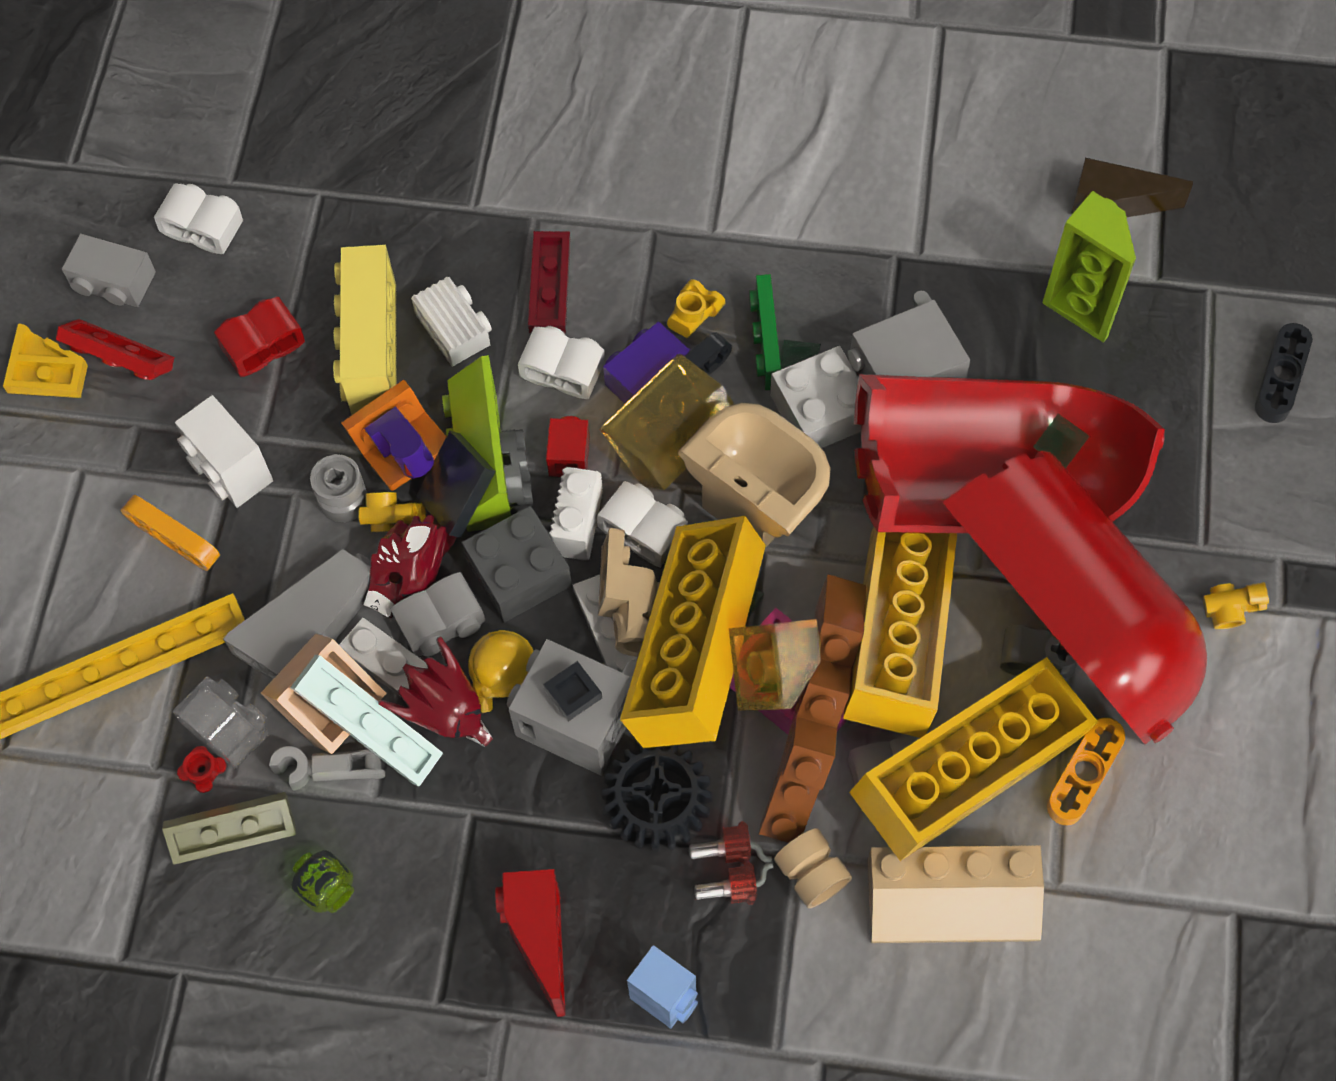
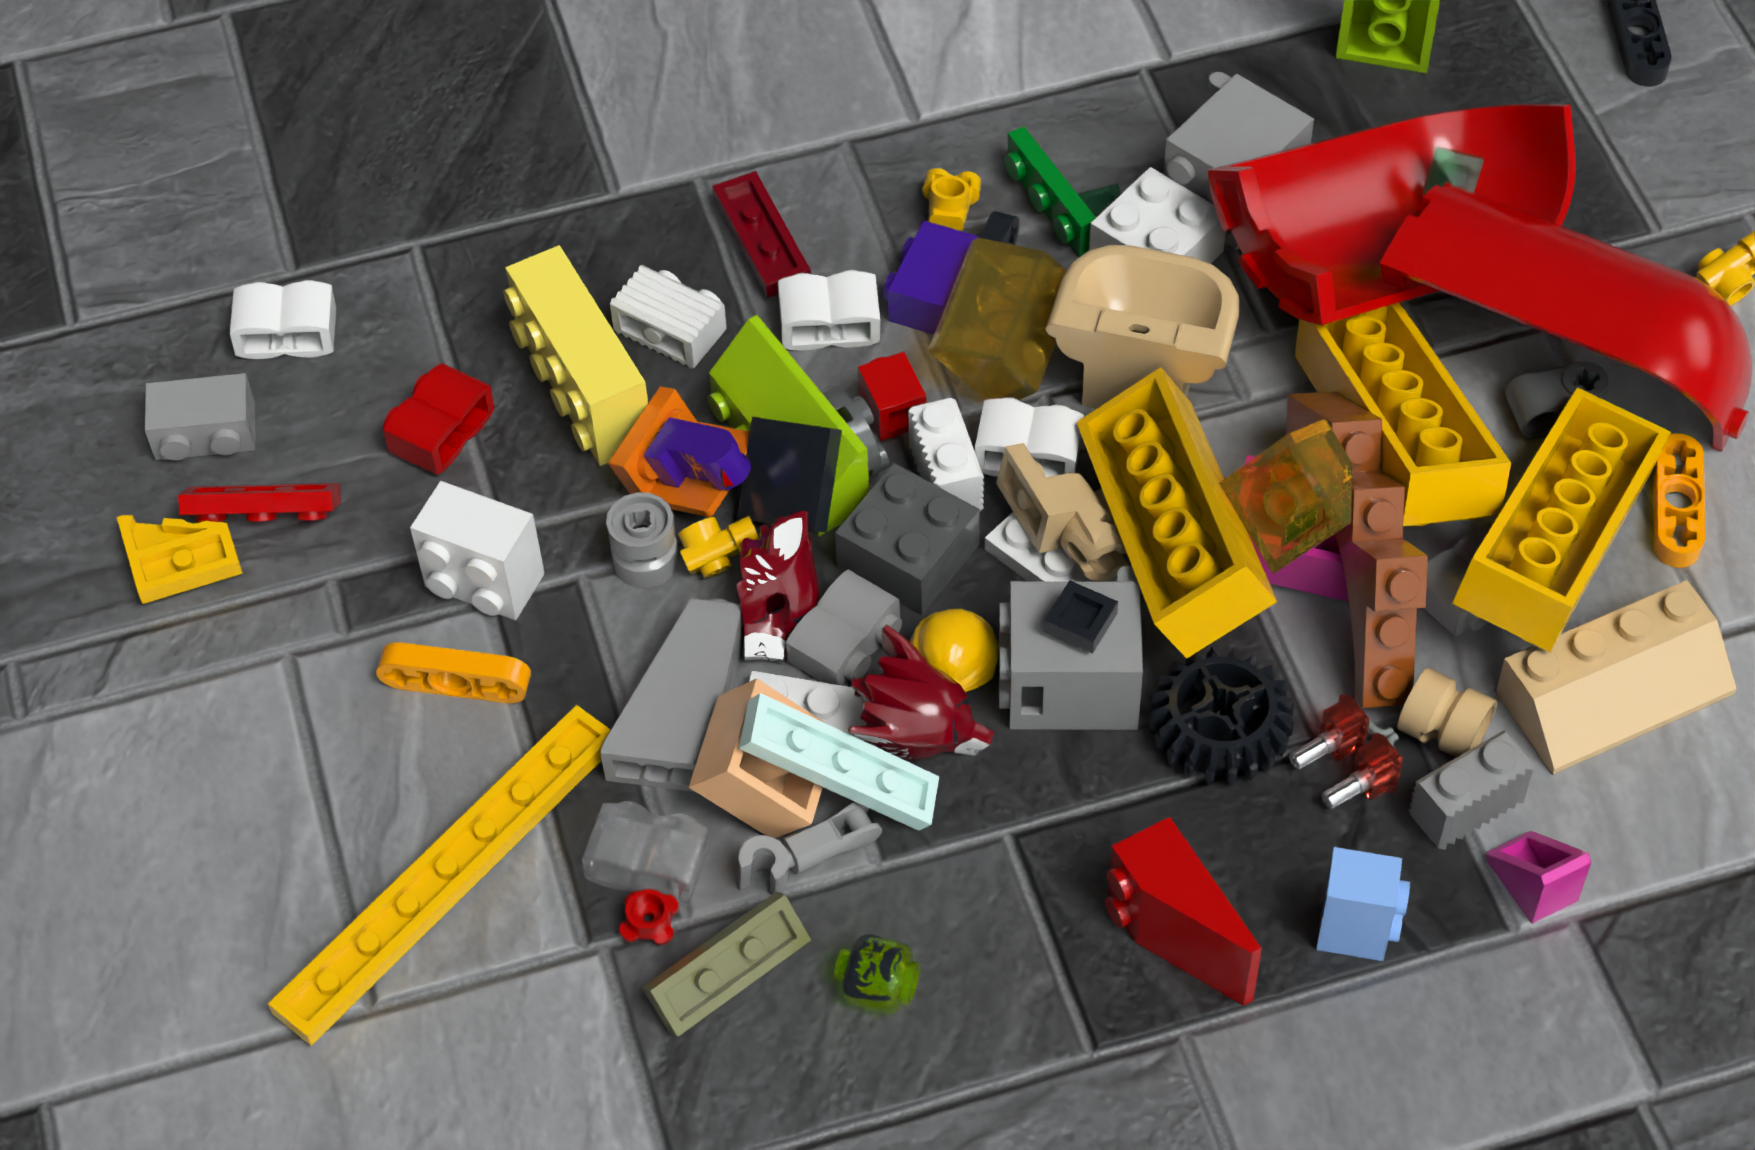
camera: 25 degrees left, 10 degrees down
(798, 933) = (1471, 789): none -> light grey brick
(811, 1015) = (1540, 873): none -> dark pink slope

